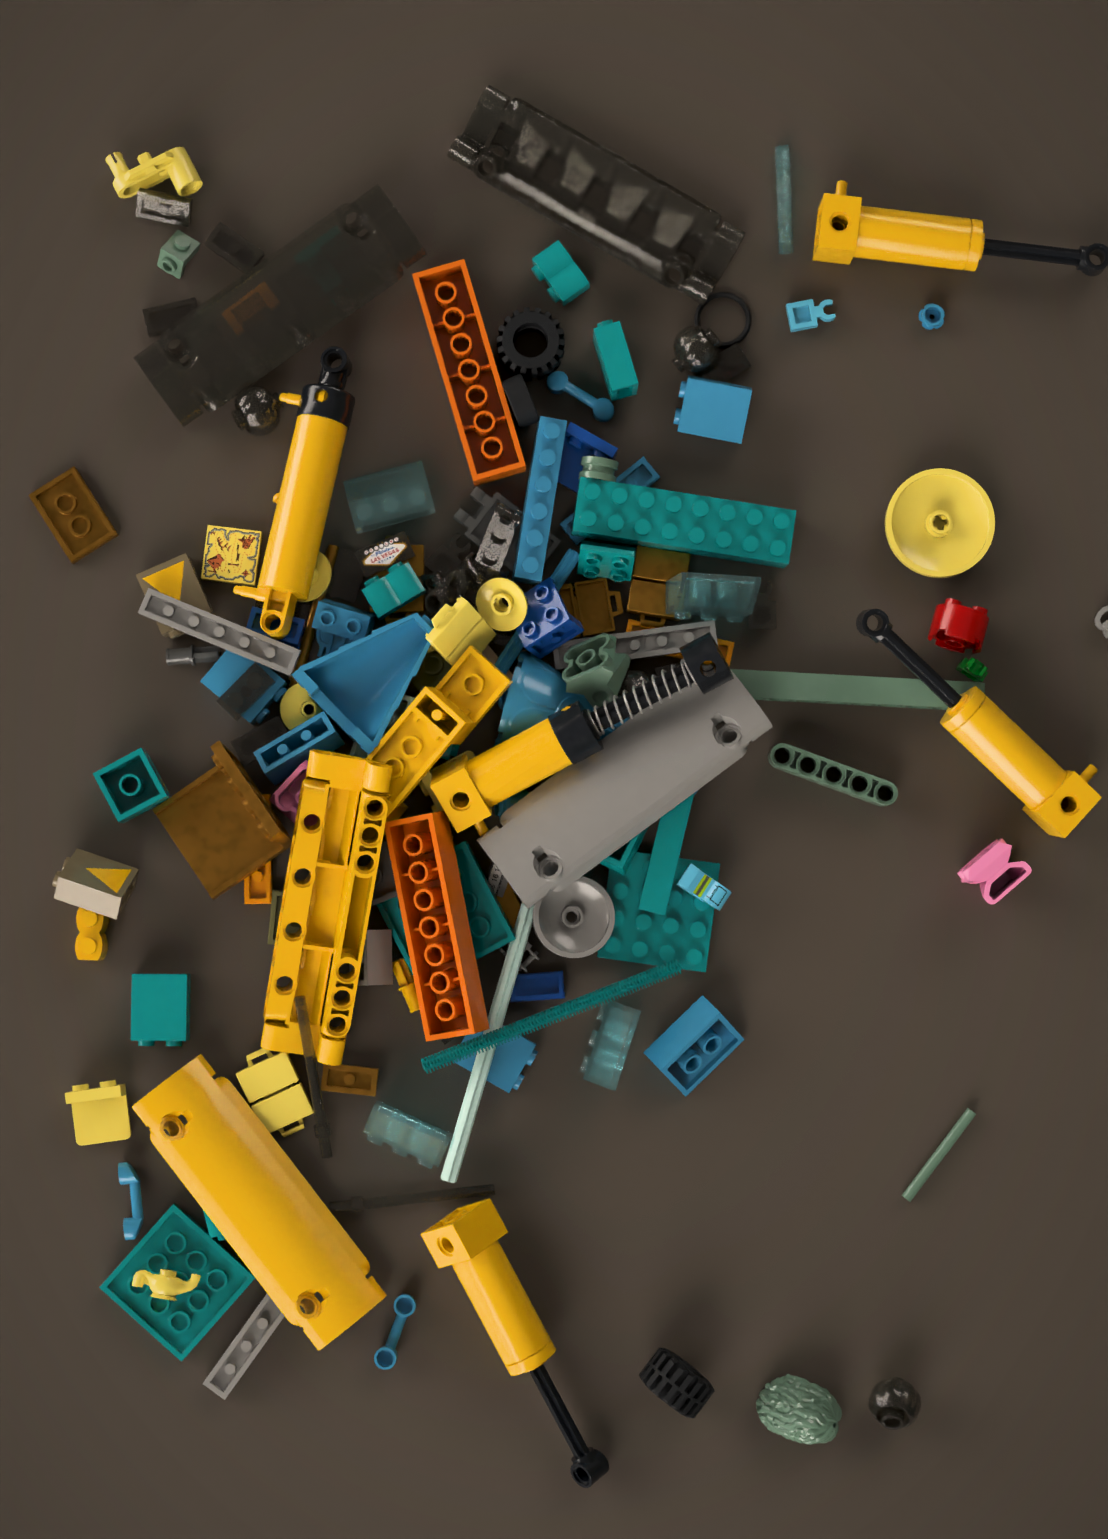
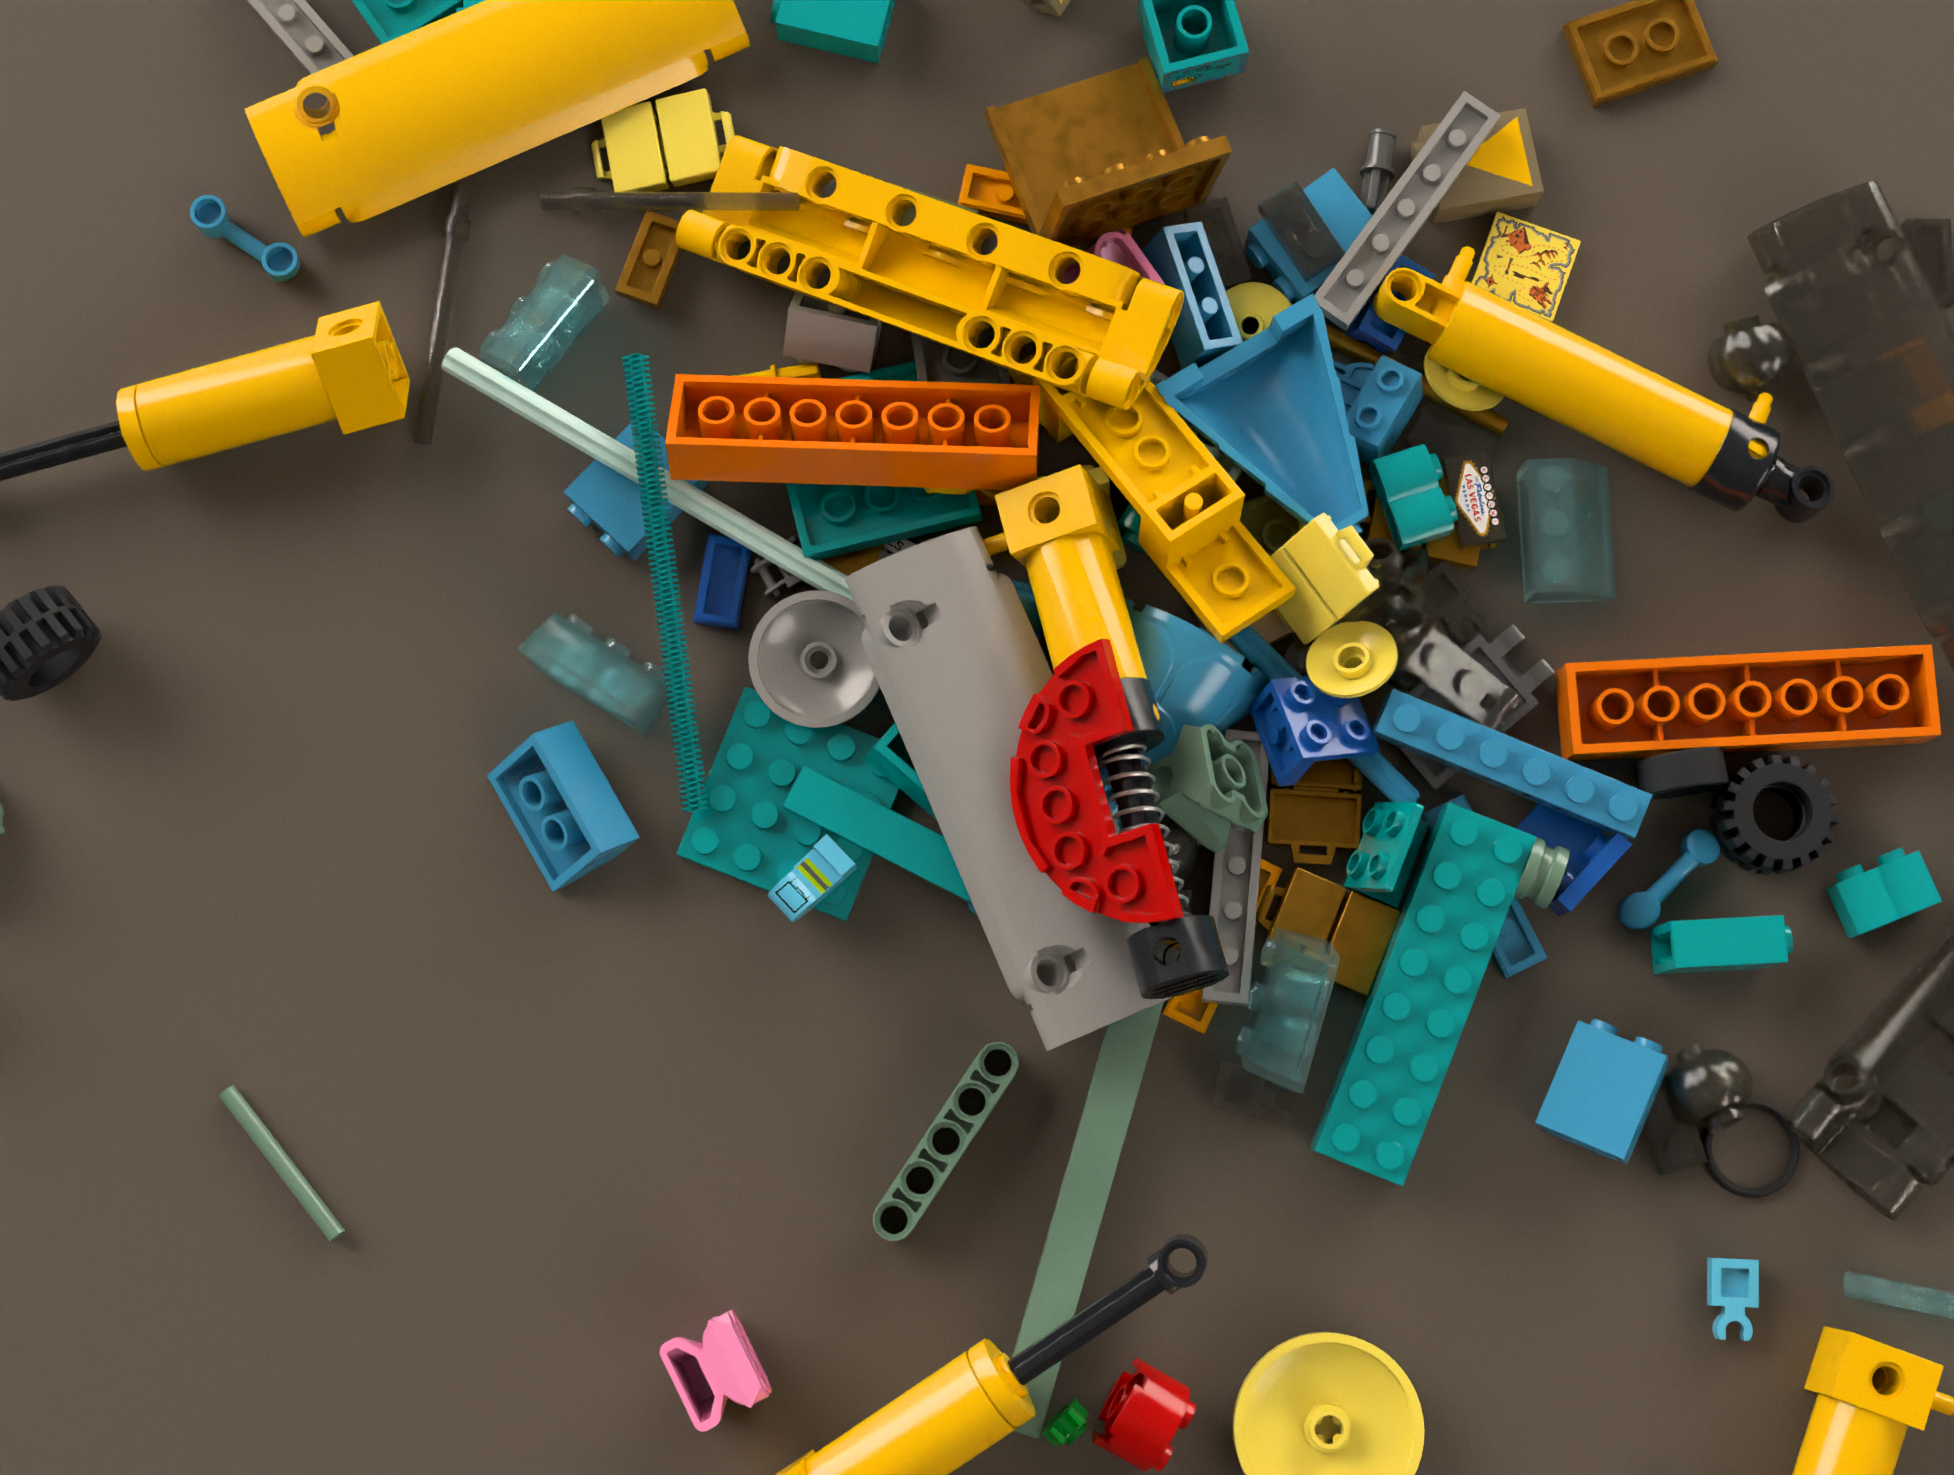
camera: 105 degrees right, 5 degrees down
(636, 746) = (1063, 801): none -> red plate

